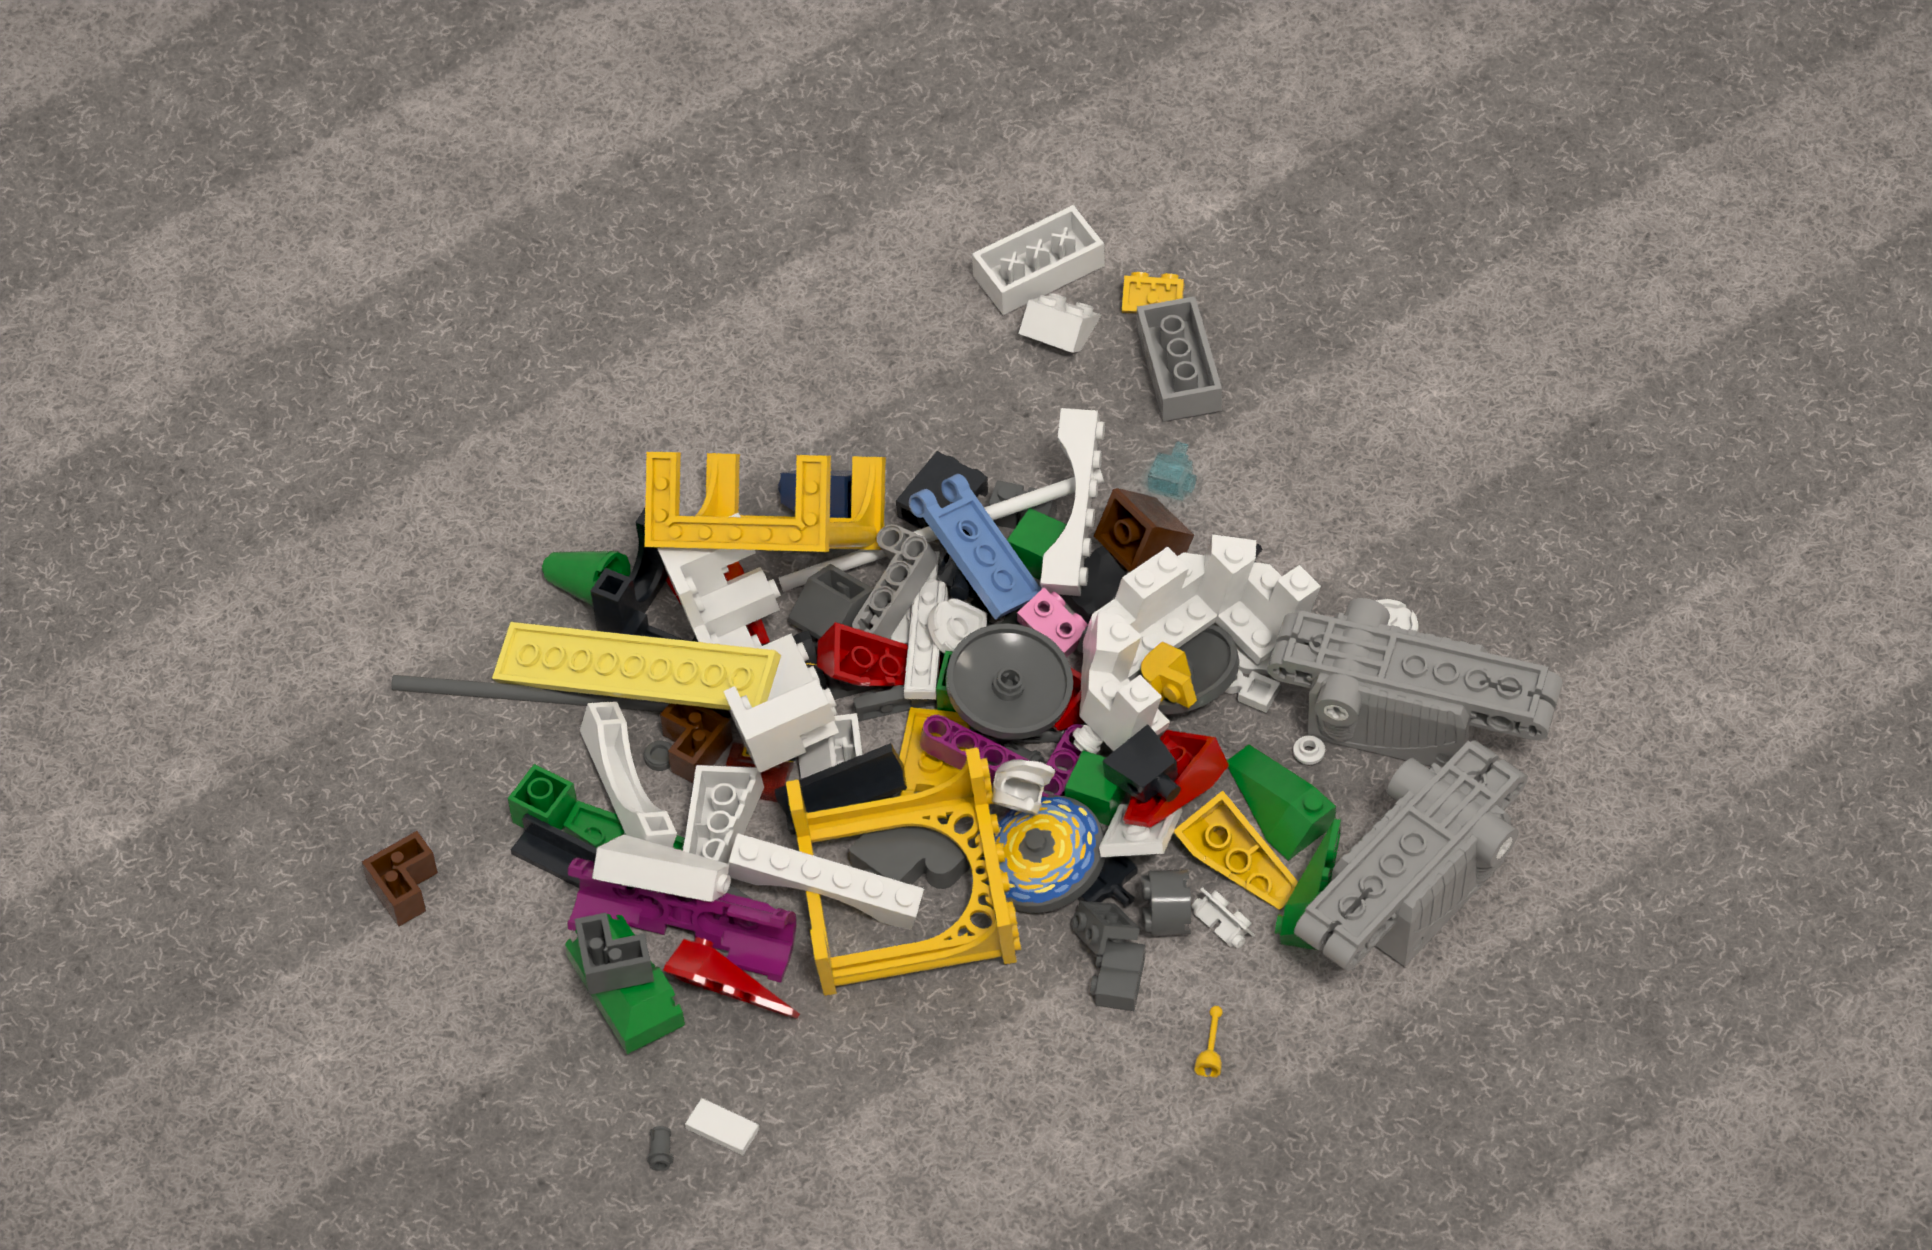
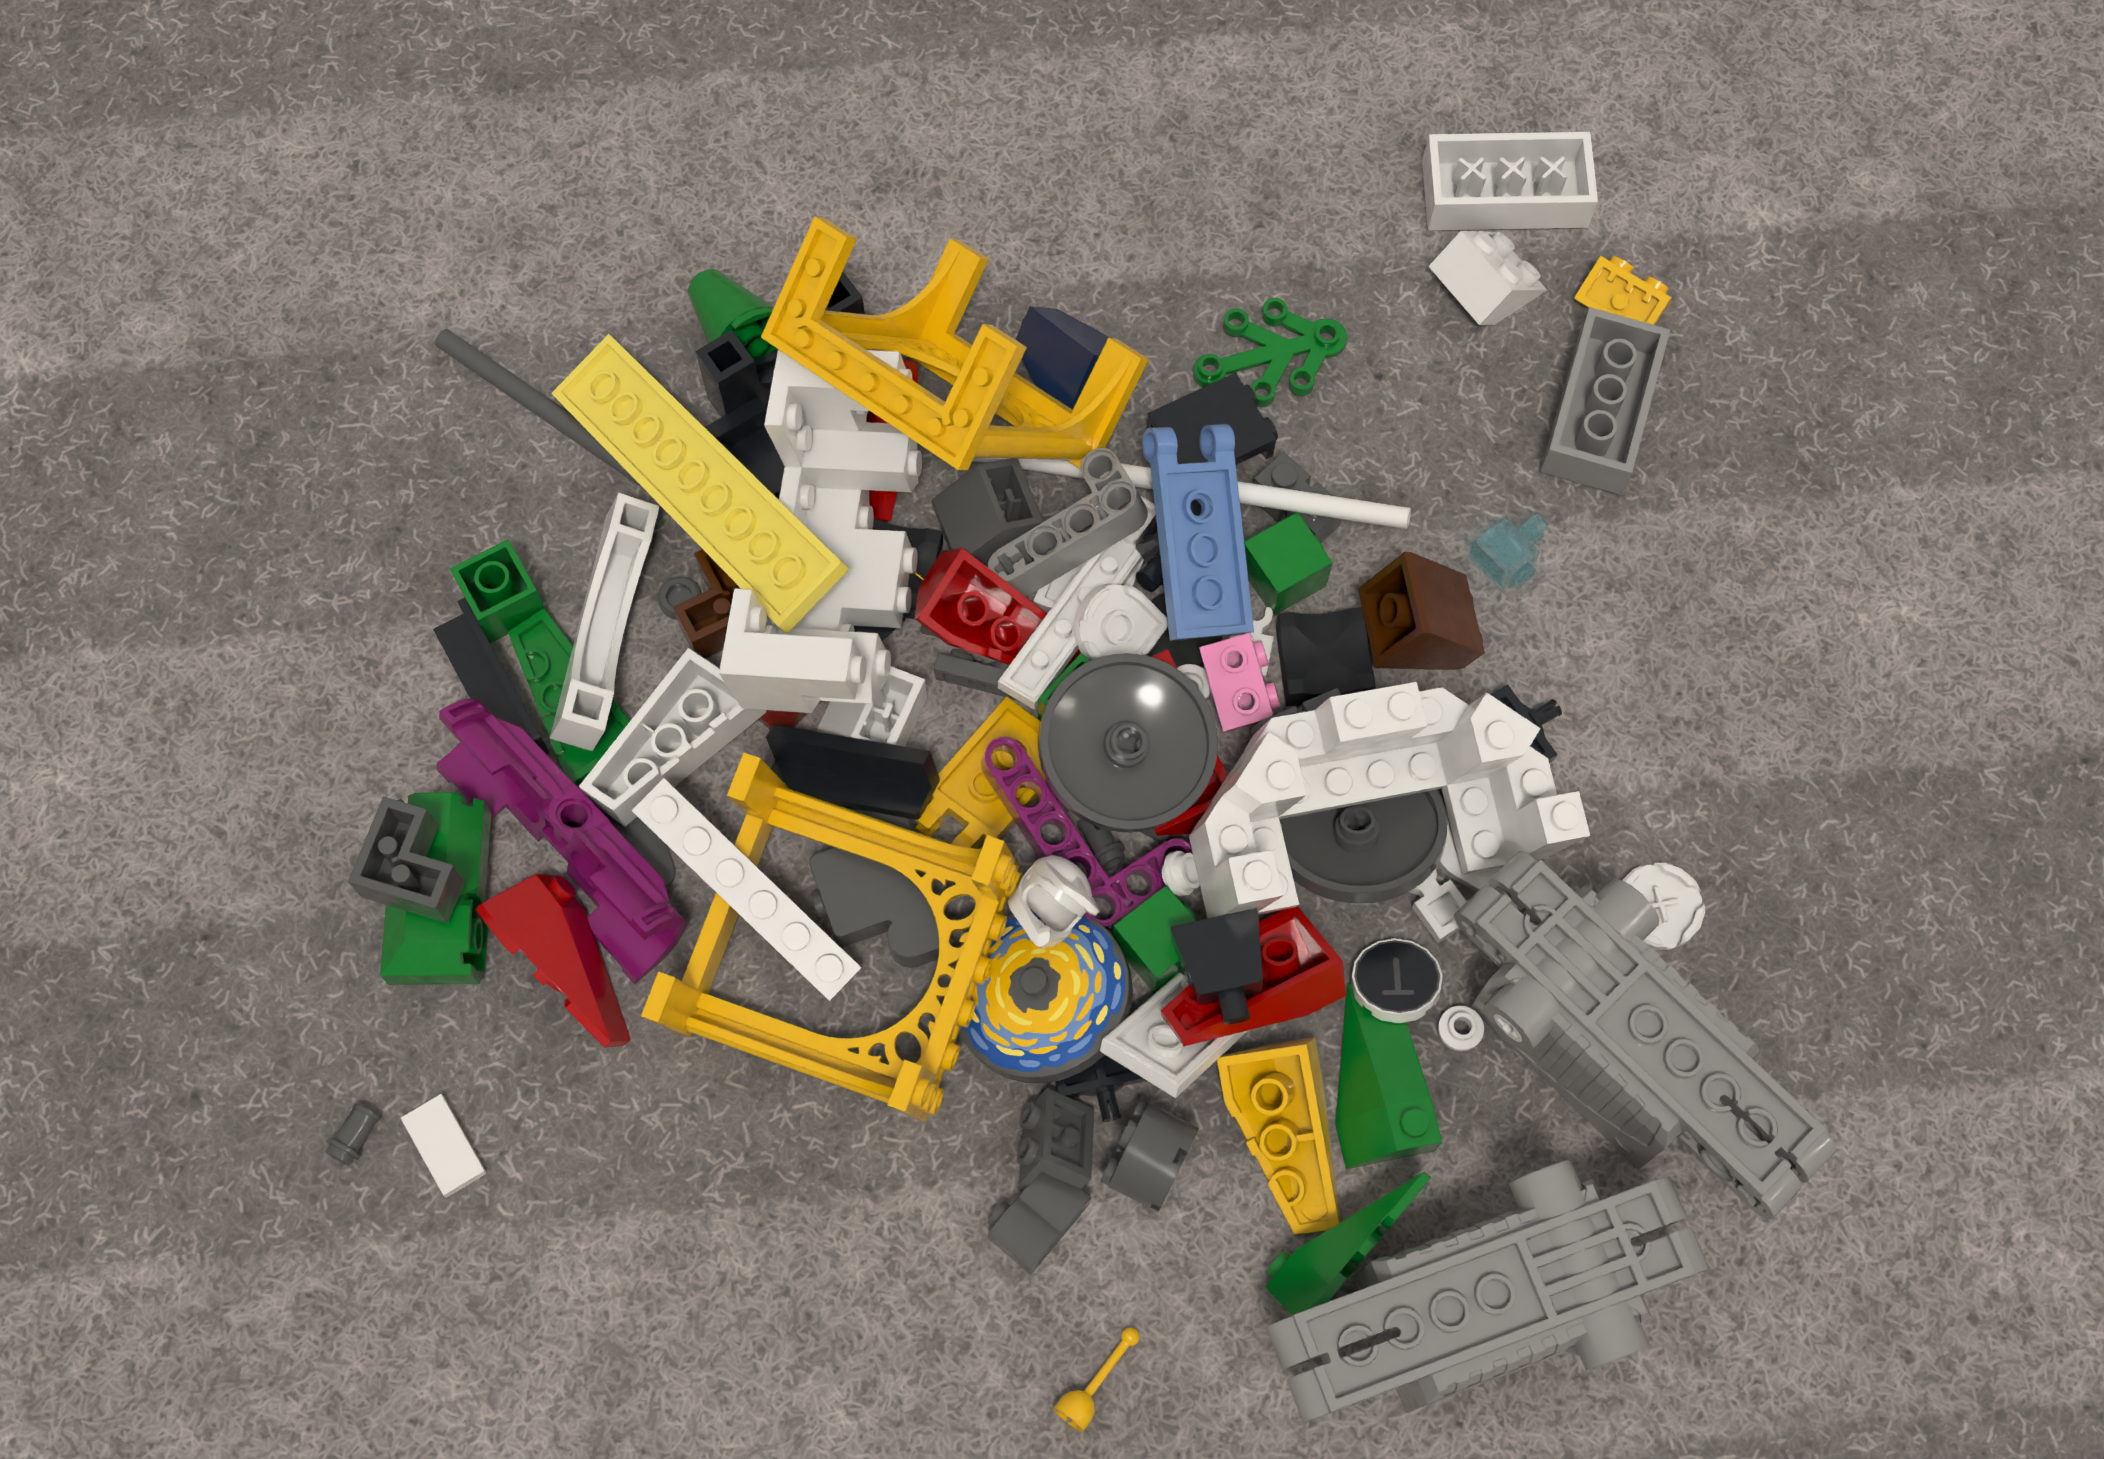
camera: 25 degrees right, 15 degrees up
(396, 876) = (275, 592): reddish brown brick -> none
(660, 869) = (546, 771): white slope -> none
(949, 429) = (1275, 350): none -> green plant
(1064, 561) = (1295, 612): white arch -> none
(1169, 674) = (1326, 836): yellow brick -> none
(1233, 926) = (1213, 1190): white hinge -> none
(1254, 741) = (1396, 980): none -> black tile

